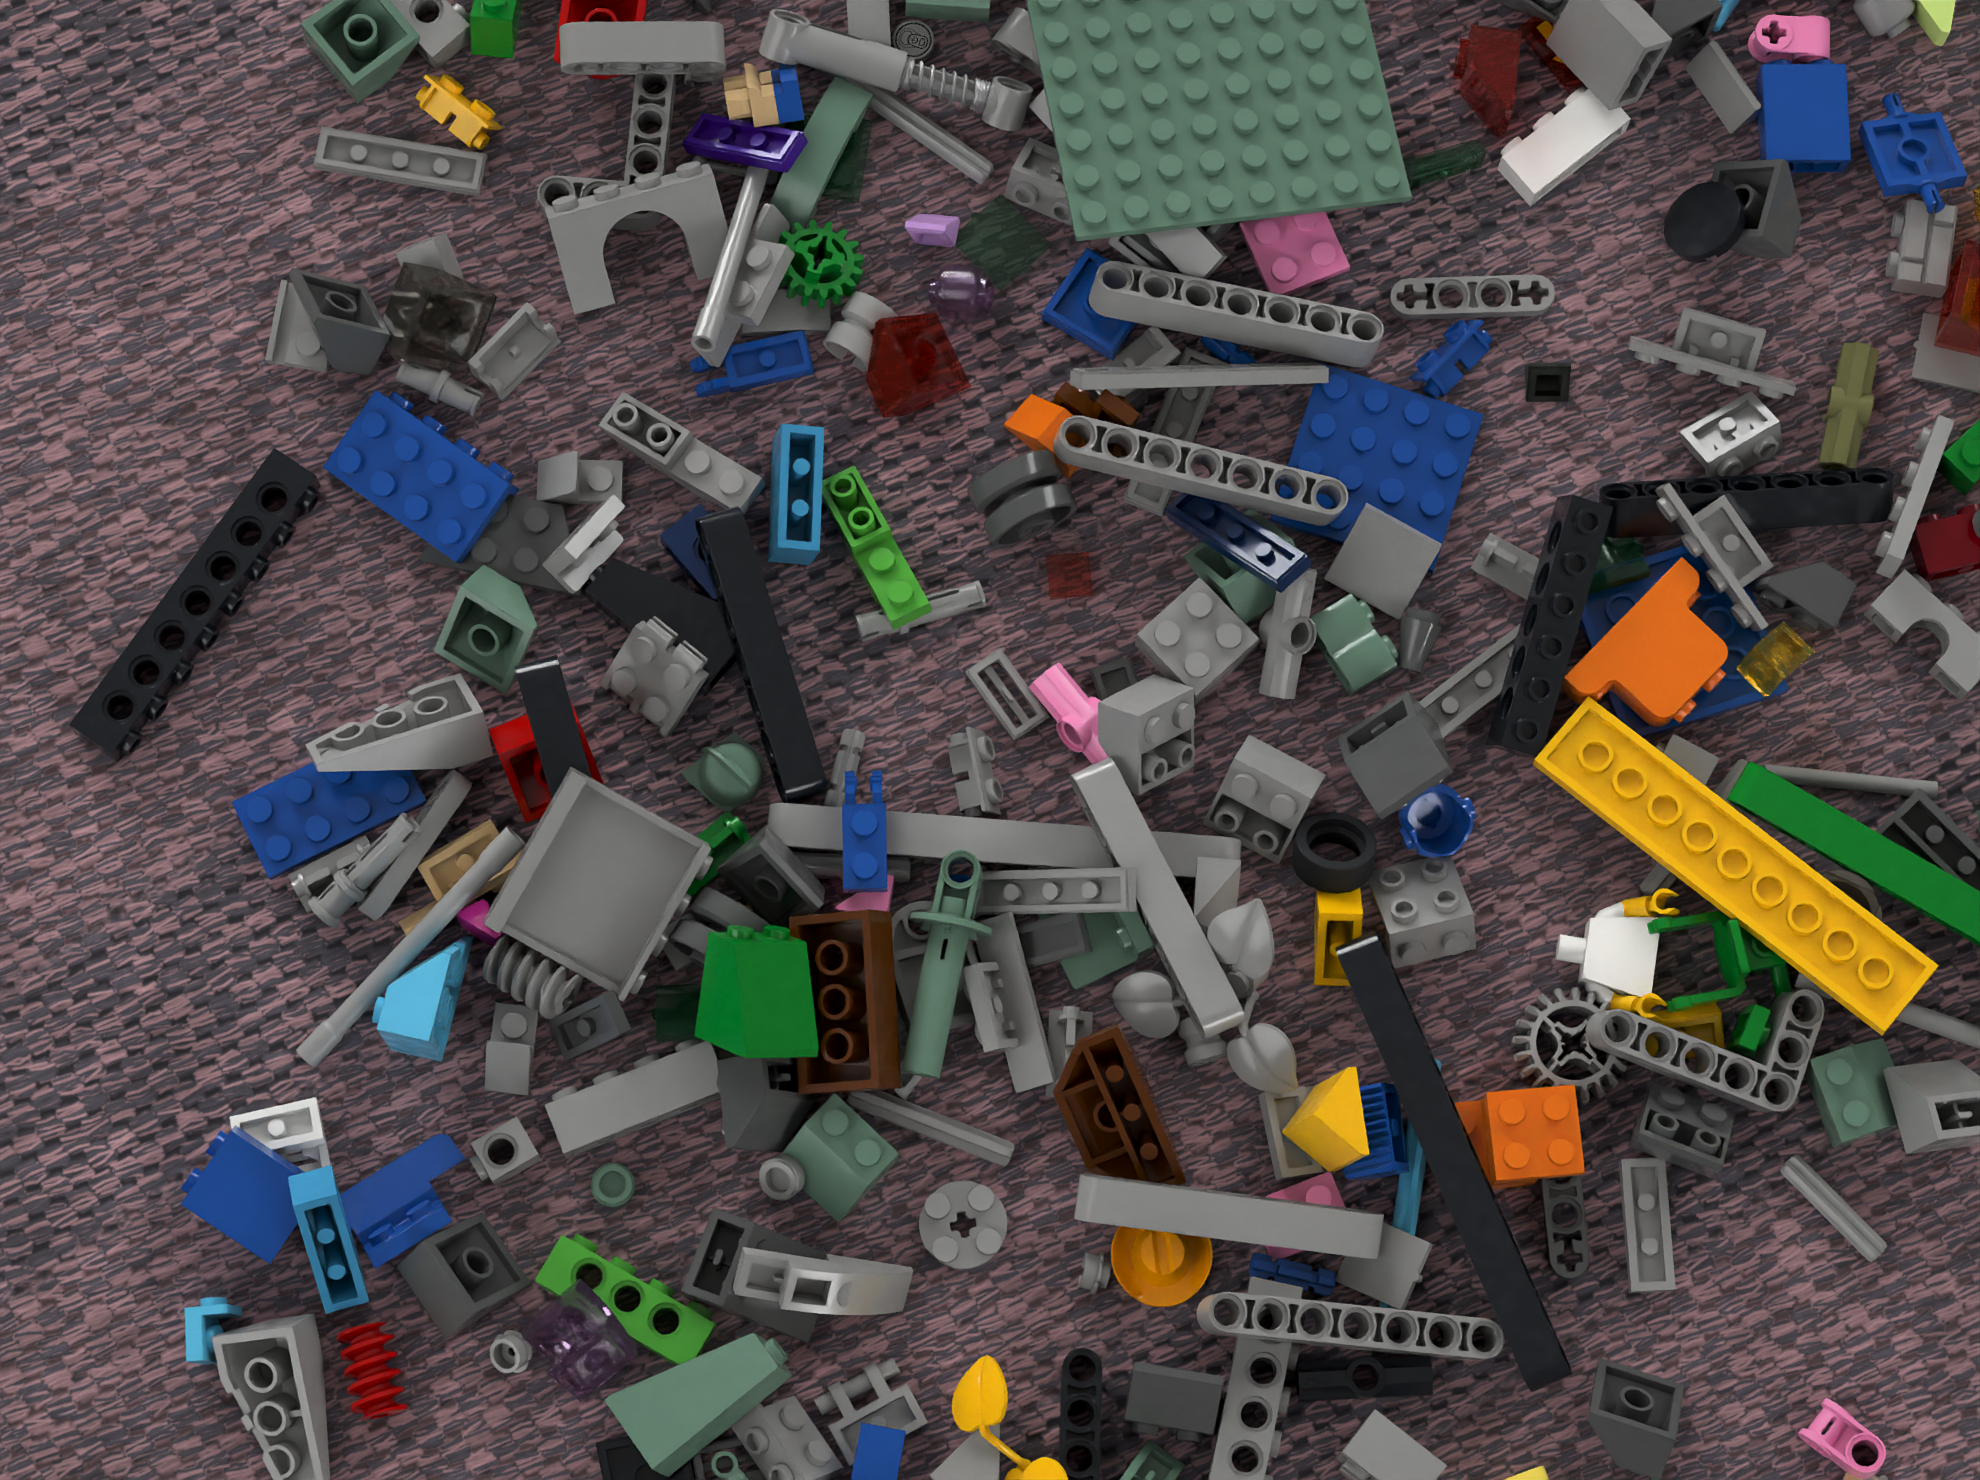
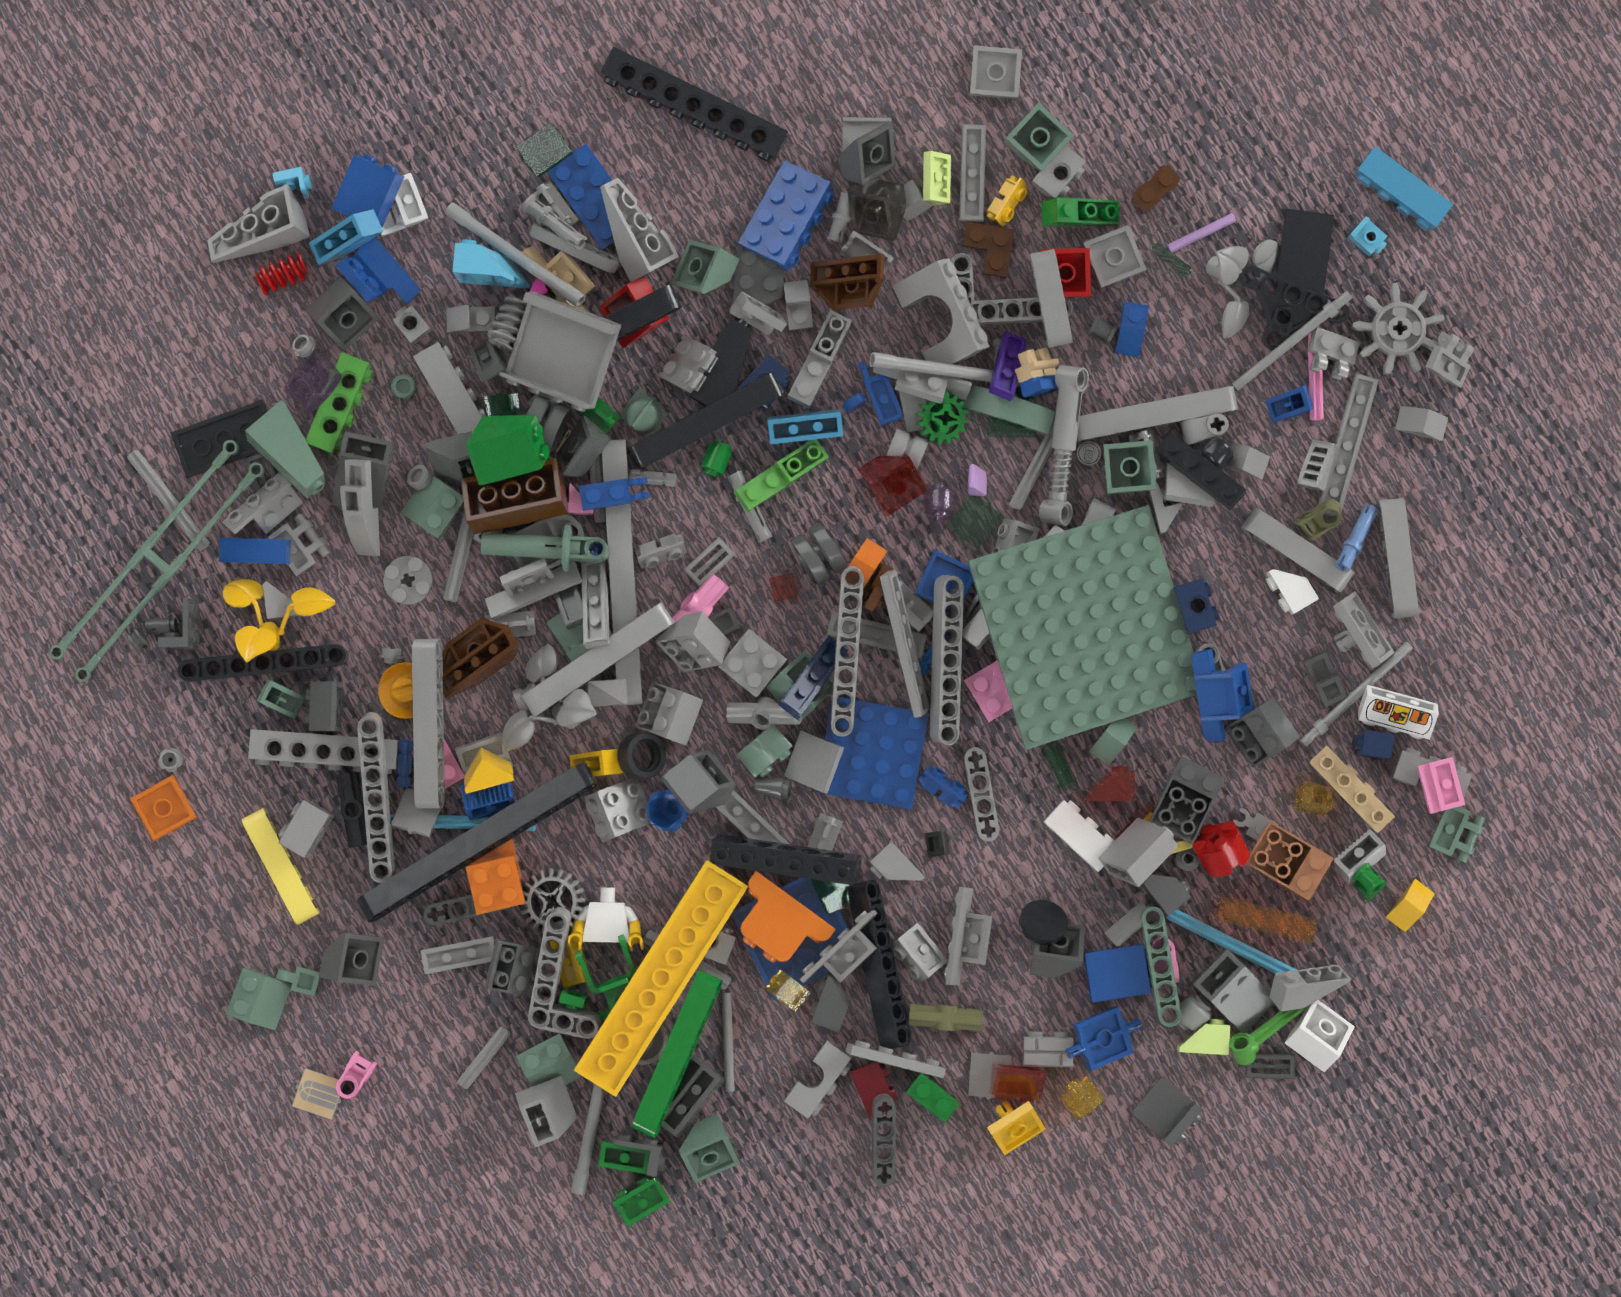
camera: 80 degrees right, 10 degrees up
(231, 876) = (544, 150): none -> clear green piece
(233, 97) = (995, 72): none -> light grey plate
(400, 213) = (936, 178): none -> yellowish green bracket
(531, 138) = (996, 242): none -> reddish brown plate
(555, 378) = (848, 281): none -> reddish brown wedge
(766, 409) = (854, 403): none -> blue tile
(828, 655) = (716, 458): none -> green brick
(1410, 71) = (1113, 740): none -> sand green slope
(1576, 454) = (894, 865): none -> light grey slope
(1820, 25) = (1167, 975): none -> sand green beam

